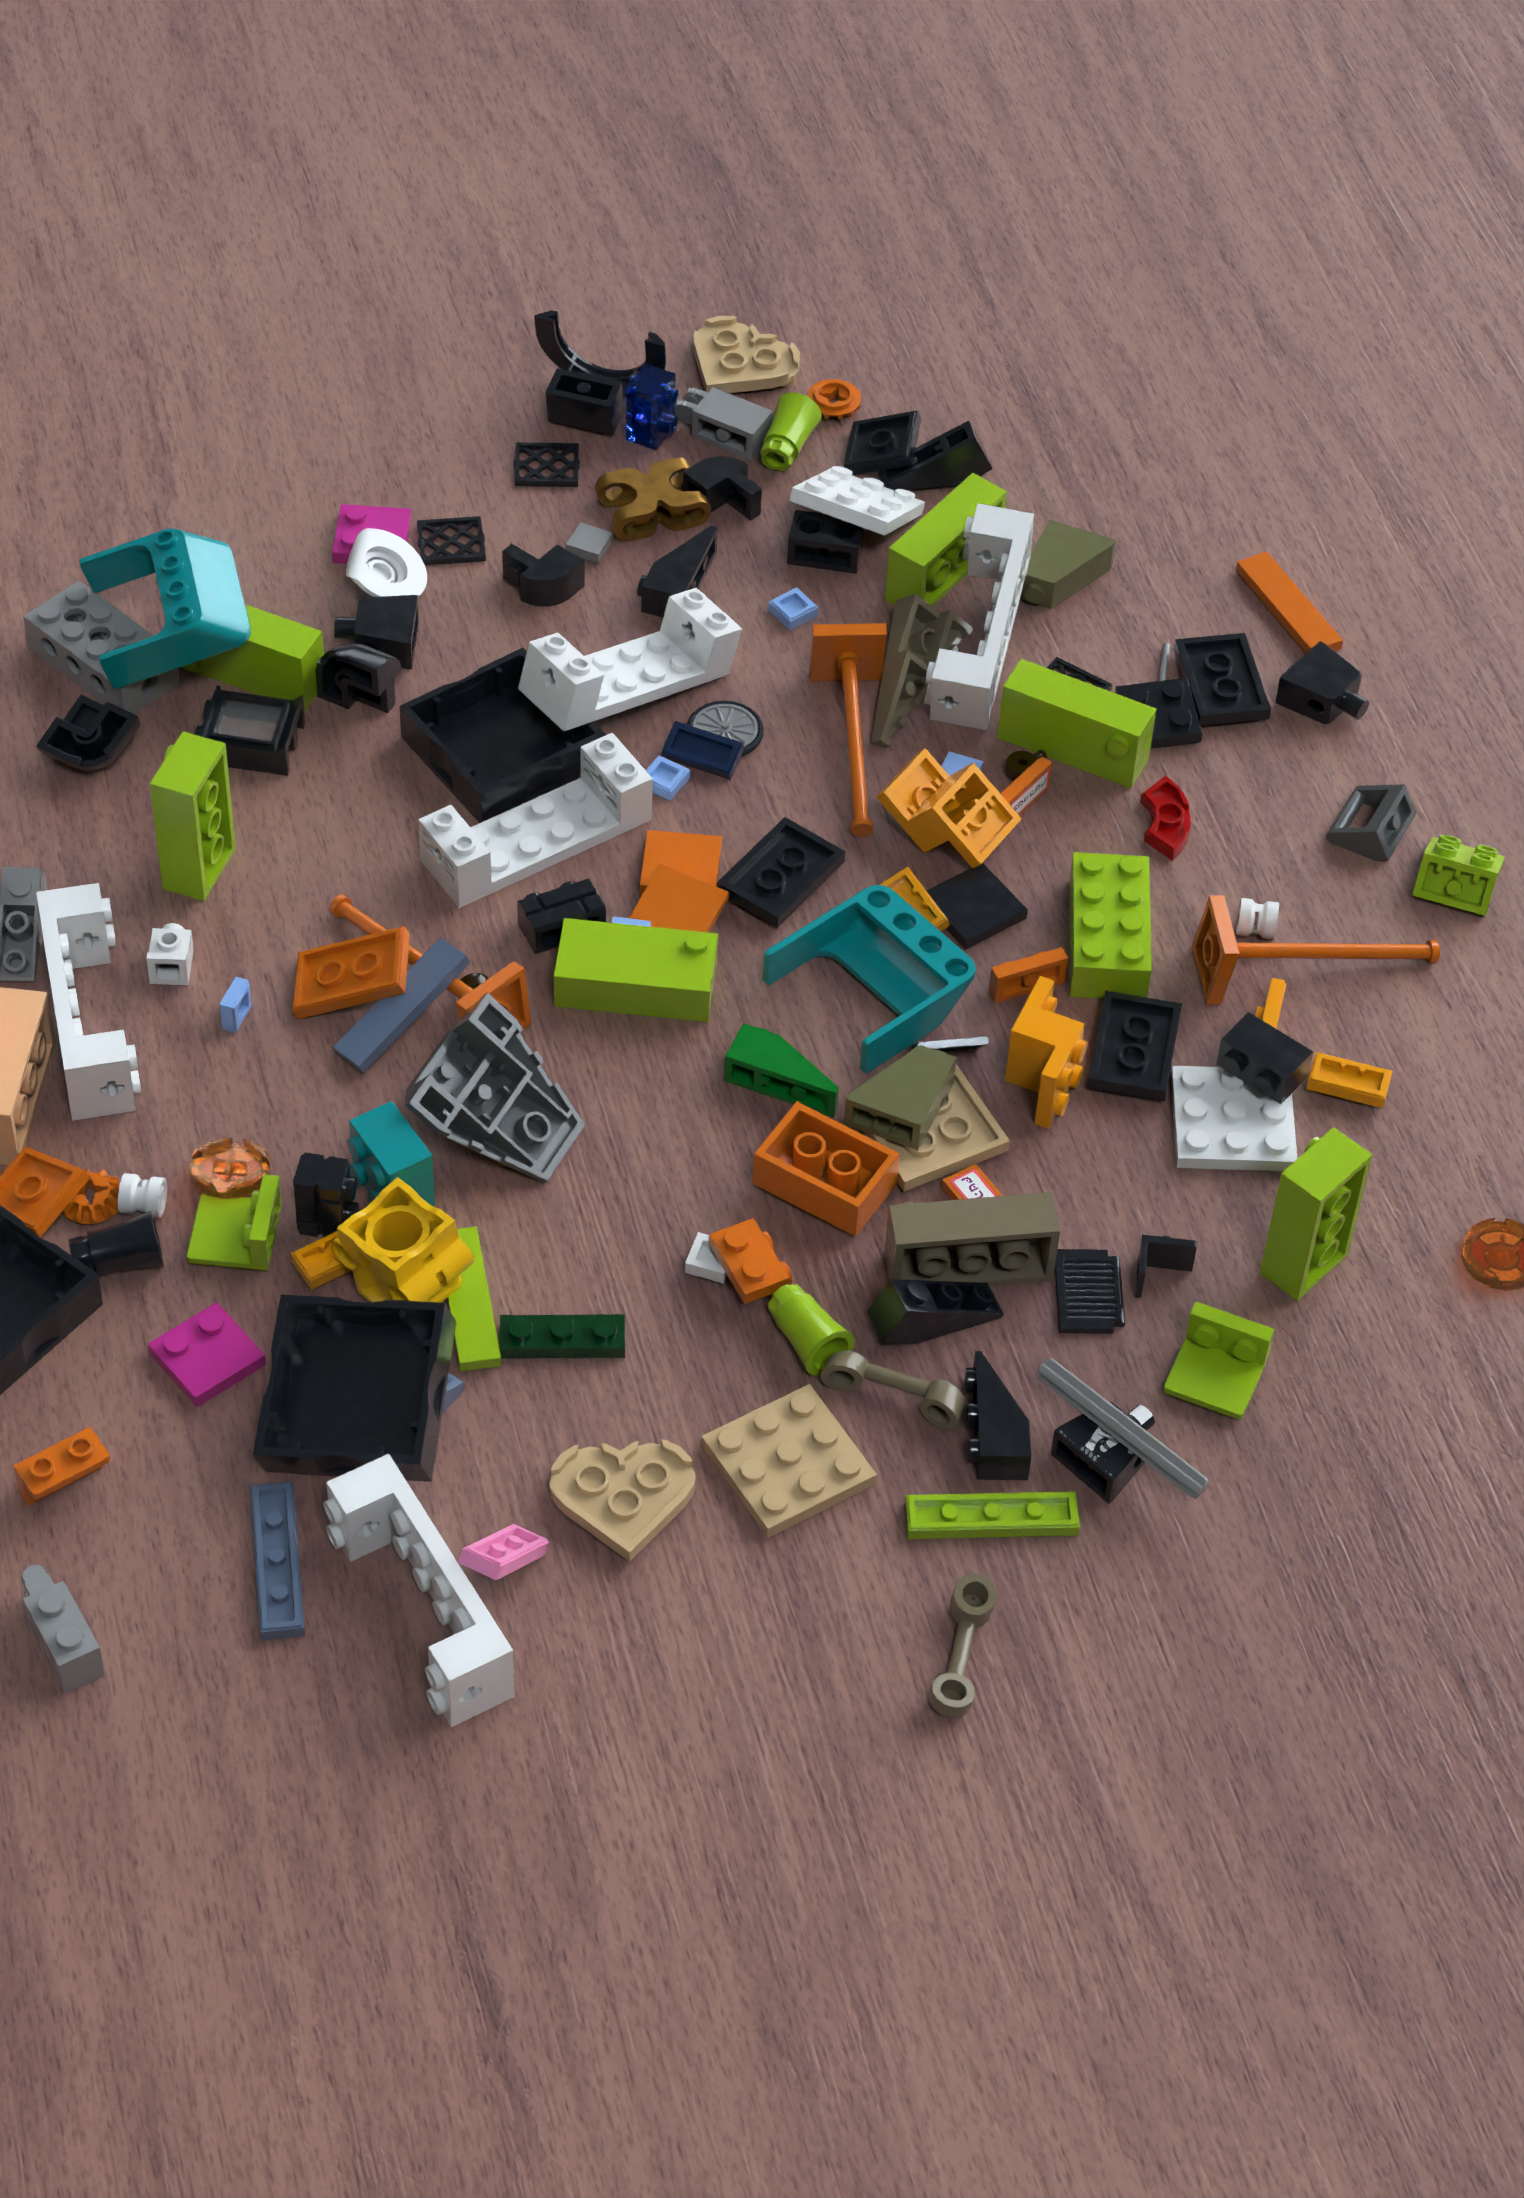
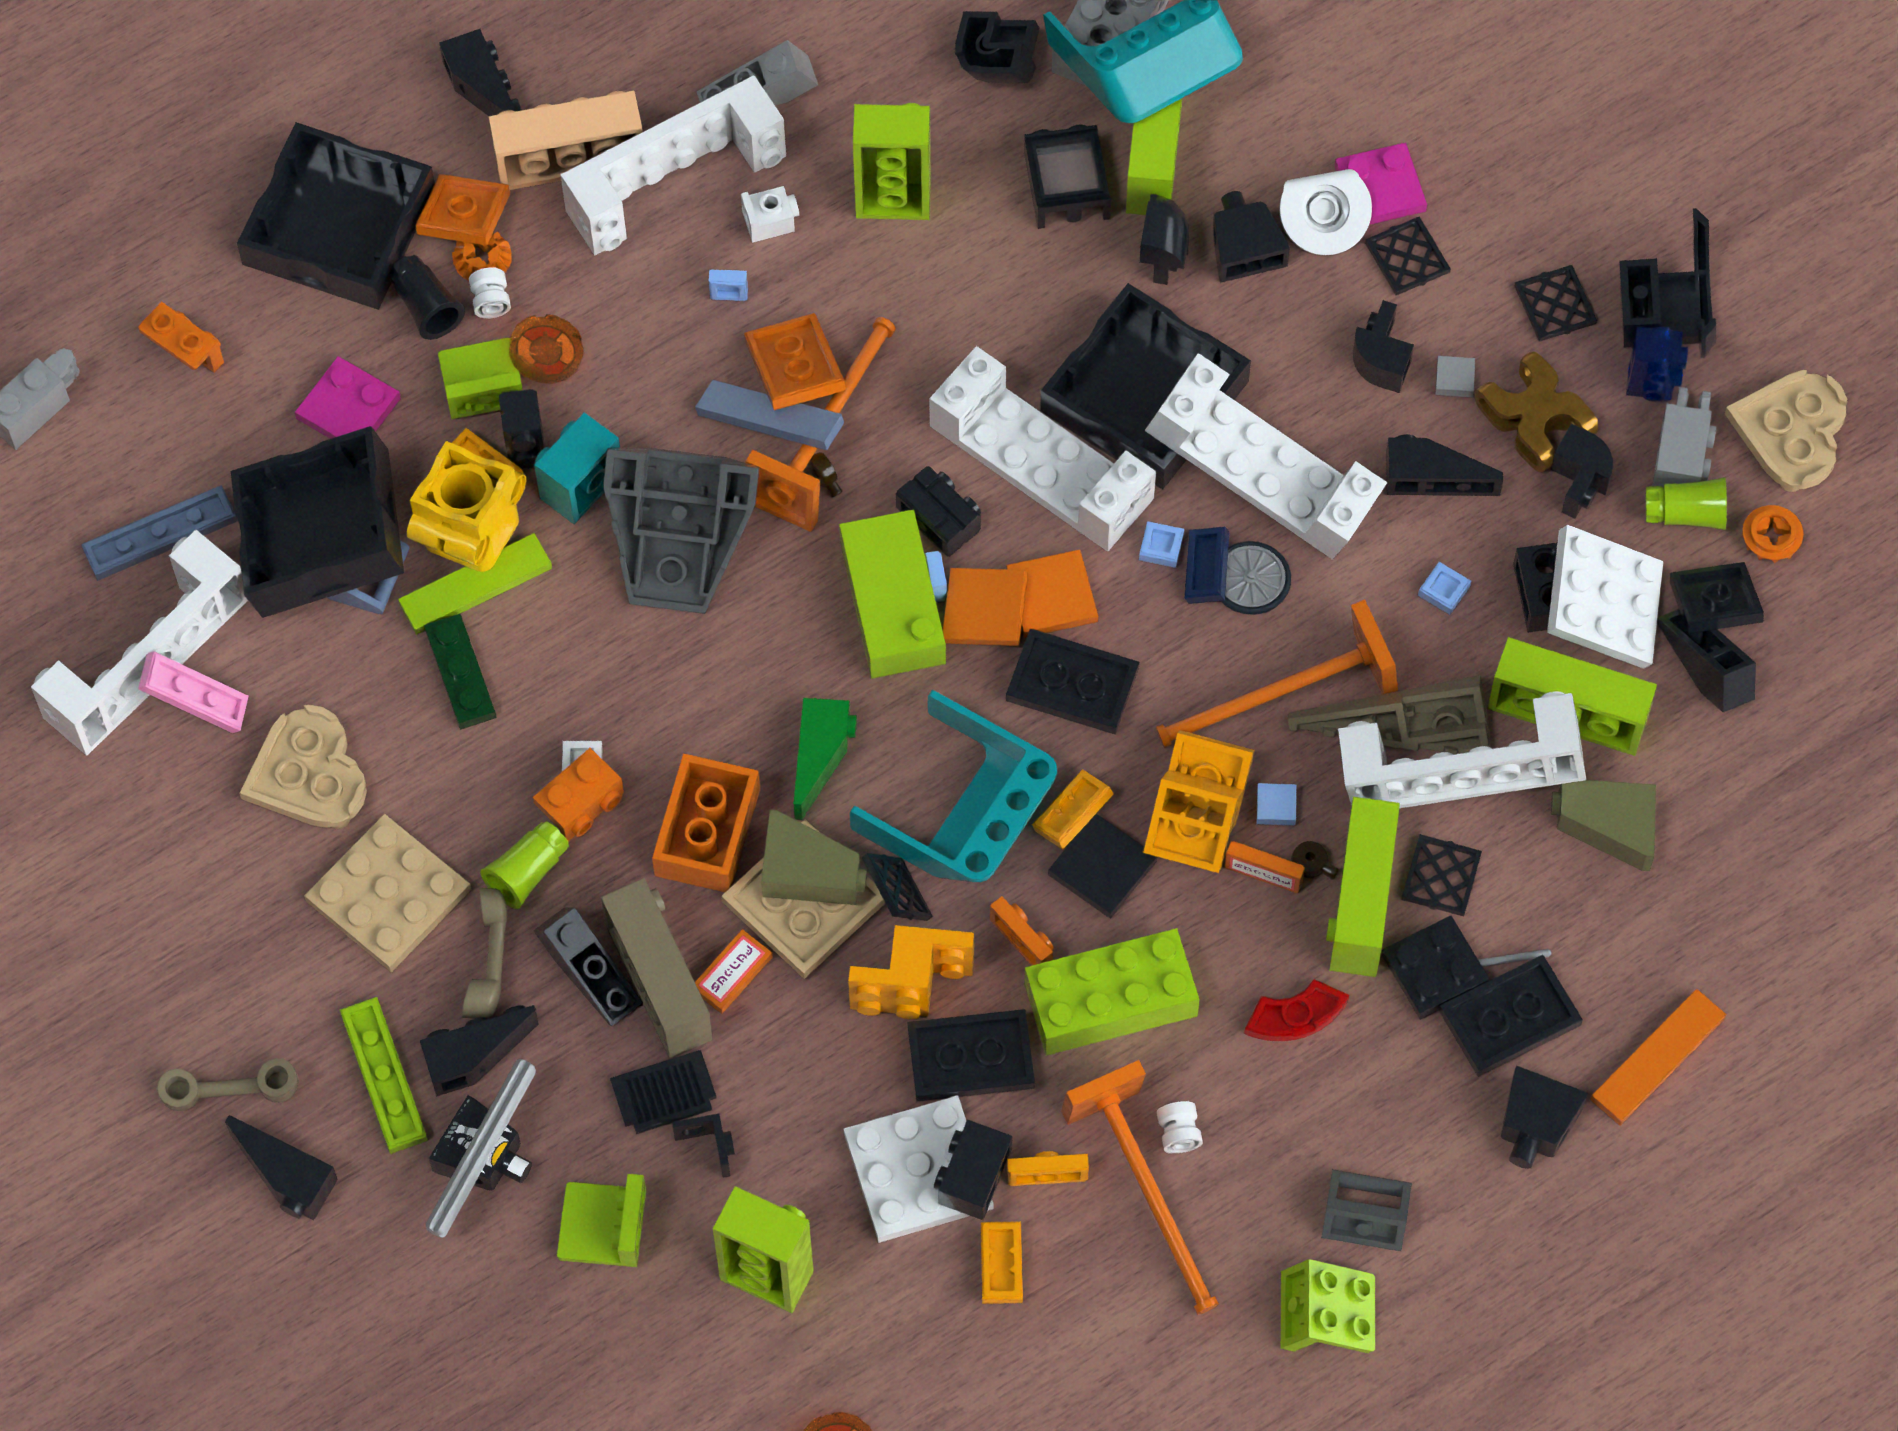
camera: 75 degrees right, 15 degrees up
(1074, 1622) = (292, 1176): none -> black slope

